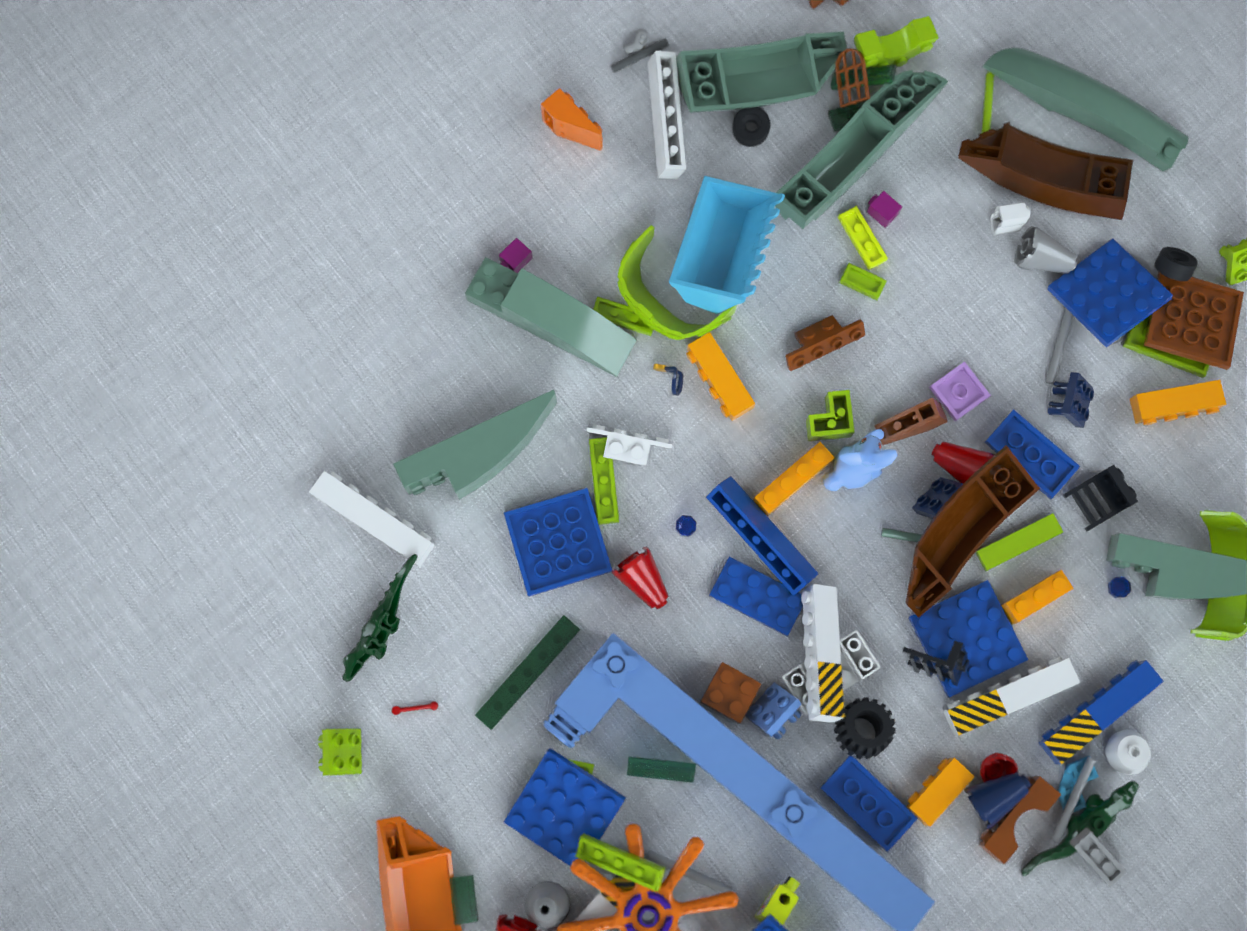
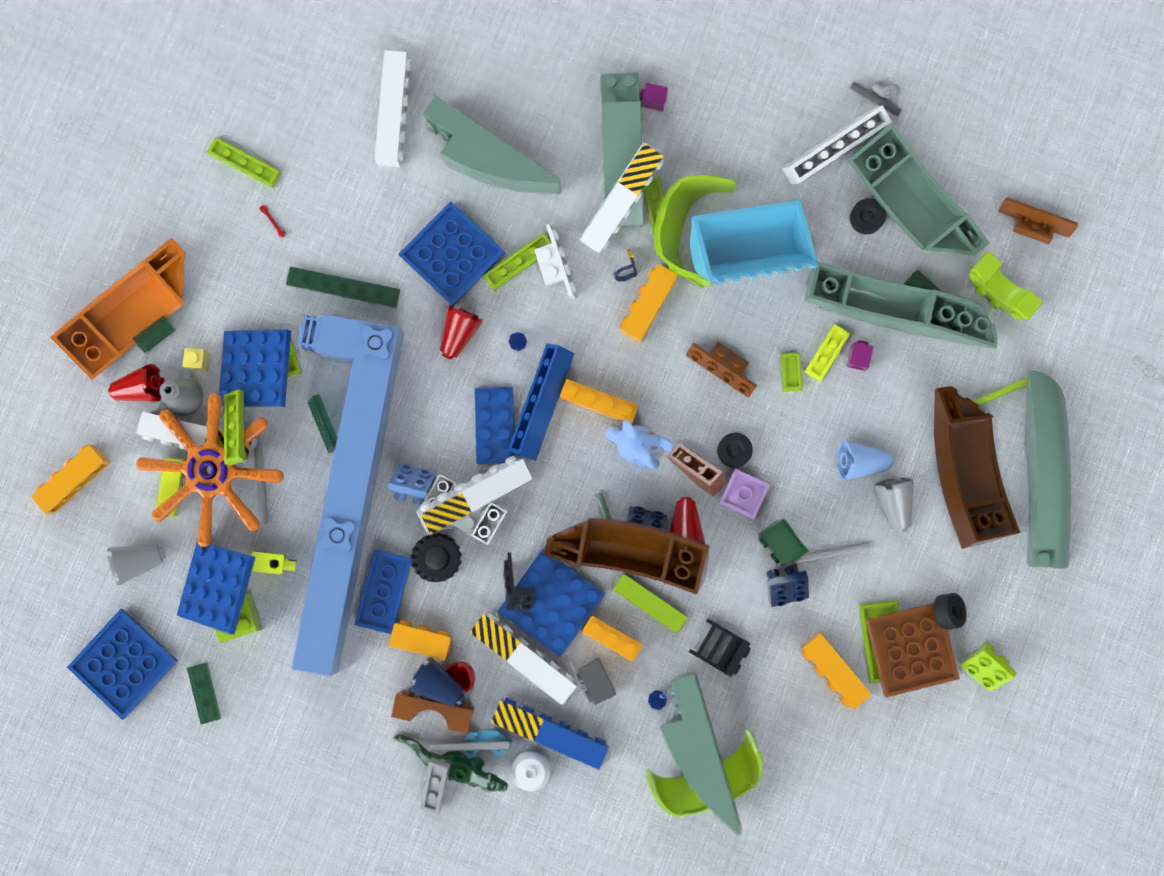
camera: 70 degrees right, 5 degrees up
(334, 704) = (243, 162): none -> lime tile
(340, 752) = (209, 185): lime plate -> none
(379, 626) = (315, 159): dark green animal -> none
(518, 868) = (196, 359): none -> light yellow brick
(570, 121) = (787, 73): orange slope -> none
(603, 341) = (621, 197): none -> white brick
(730, 693) = (408, 443): dark orange brick -> none
(837, 420) = (663, 410): lime brick -> none
(857, 83) = (965, 252): dark orange window -> none
(875, 75) = (960, 280): clear green tile -> none
(914, 364) = (745, 450): none -> black tyre
(987, 265) = (861, 460): none -> light blue cone
(1009, 218) = (909, 458): white brick -> none
(1029, 379) = (782, 542): none -> dark green slope
(1036, 453) = (725, 577): blue plate -> none
(1071, 637) = (596, 681): none -> dark grey brick
(1110, 292) = (894, 570): blue plate -> none

